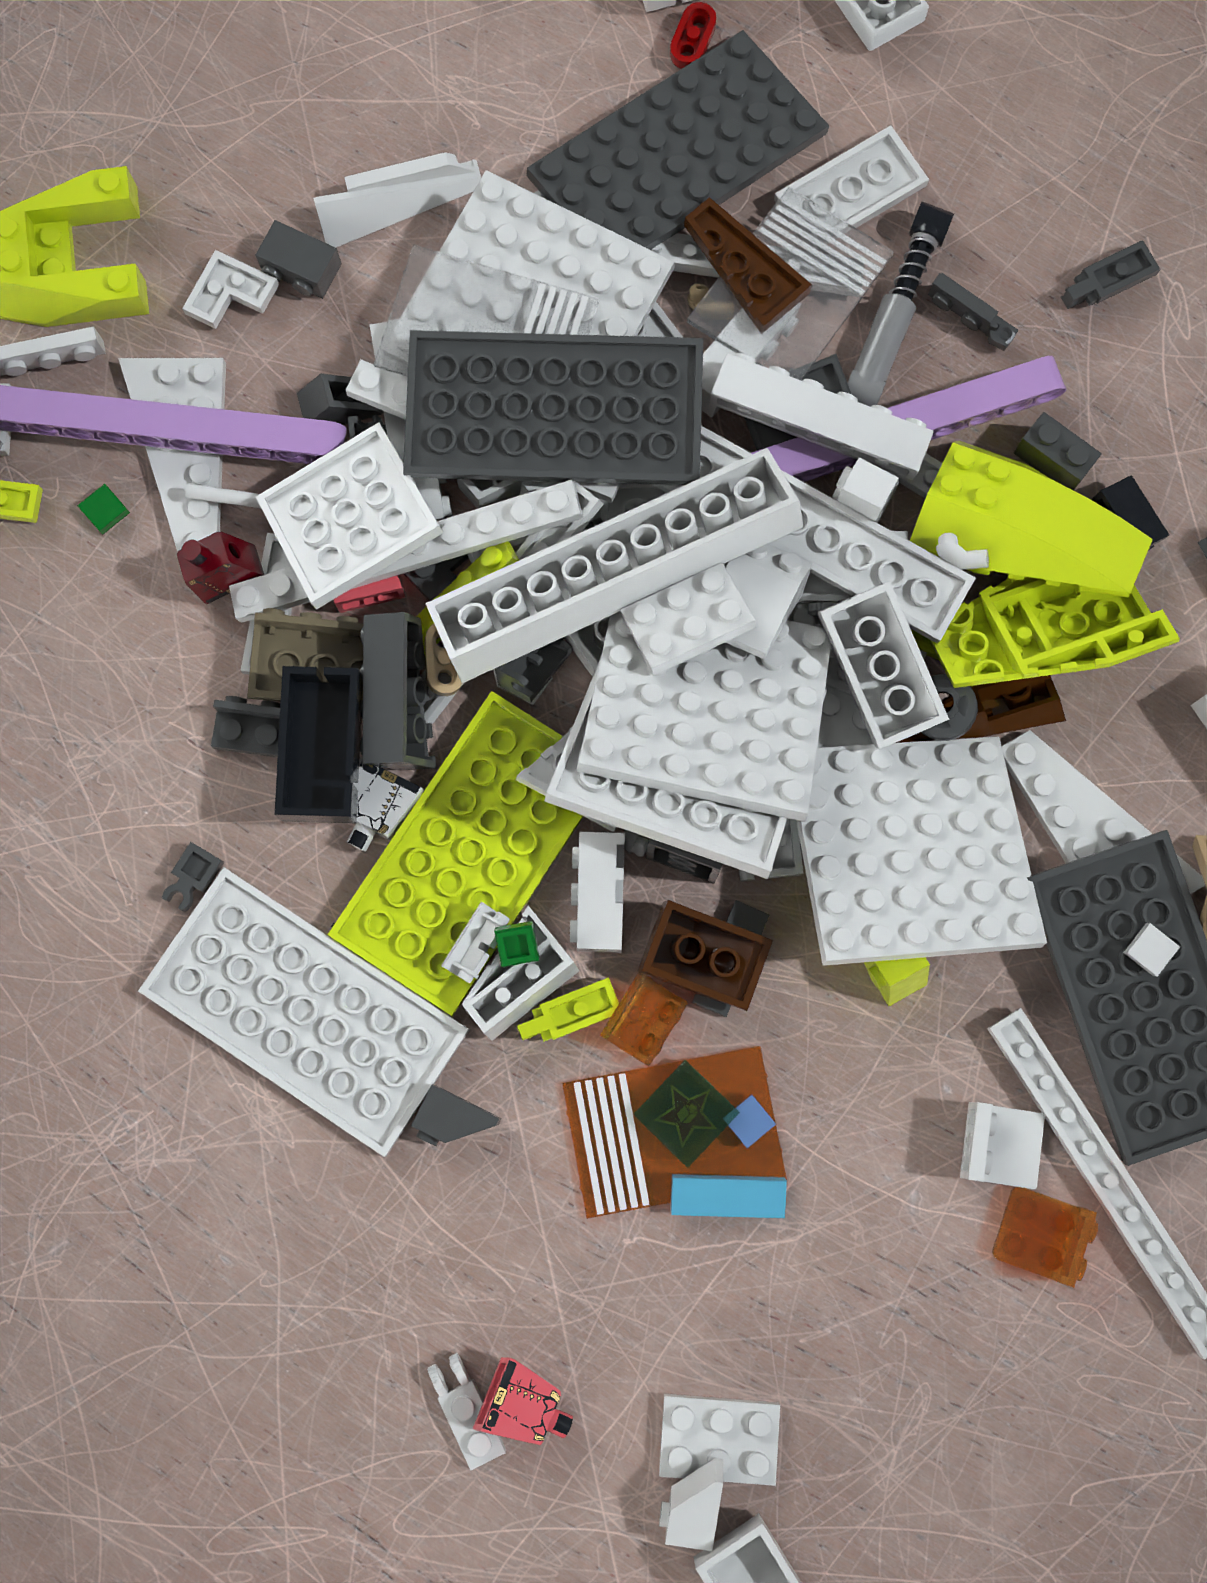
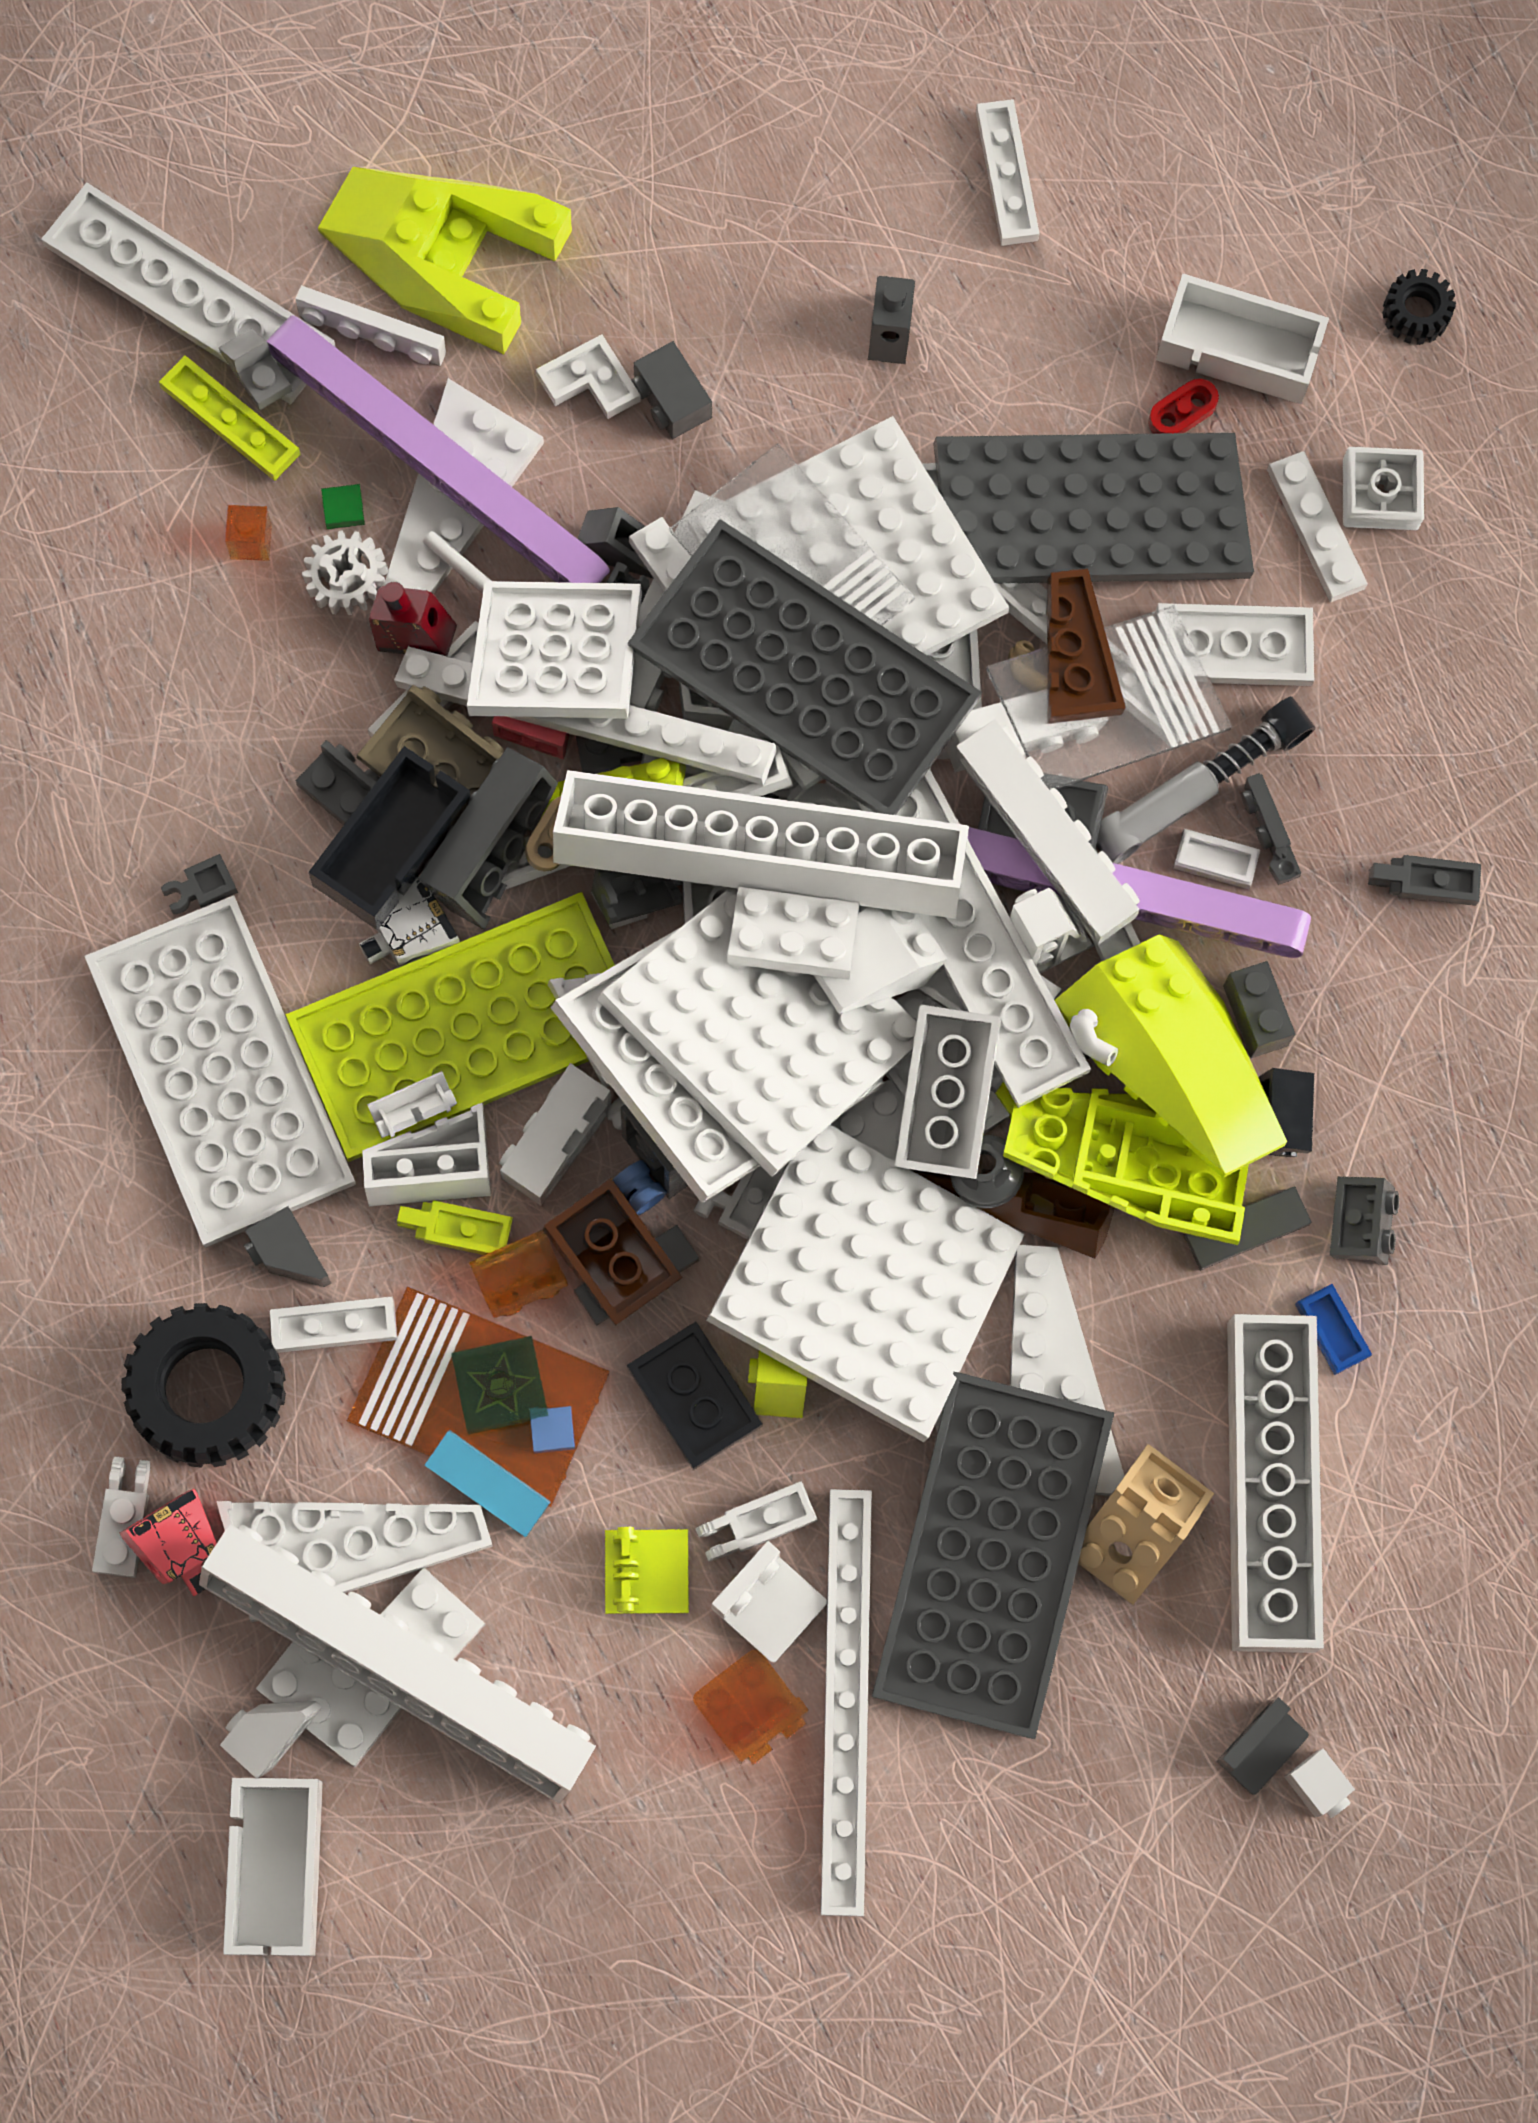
camera: 25 degrees right, 5 degrees down
(43, 575) = (248, 532): none -> clear orange brick
(127, 552) = (338, 559): none -> white gear
(392, 195) = (800, 385): white wedge -> none
(408, 1270) = (165, 1347): none -> black tyre
(424, 92) = (891, 313): none -> dark grey torso
(517, 944) = (447, 1127): green tile -> none
(527, 1152) = (333, 1324): none -> white plate
(635, 1335) = (363, 1541): none -> white wing
(688, 890) = (639, 1187): none -> medium blue wheel
(755, 1338) = (435, 1613): none -> white plate
(765, 1391) = (396, 1663): none -> white brick
(838, 1023) = (694, 1395): none -> black plate
(849, 63) = (1317, 526): none -> white plate
(893, 1182) = (646, 1571): none -> neon yellow hinge
(945, 360) = (1216, 859): none -> white tile
(952, 1085) = (761, 1520): none -> white hinge
(1151, 949) = (1024, 1510): white tile -> none
(1175, 598) = (1261, 1224): none -> dark grey tile

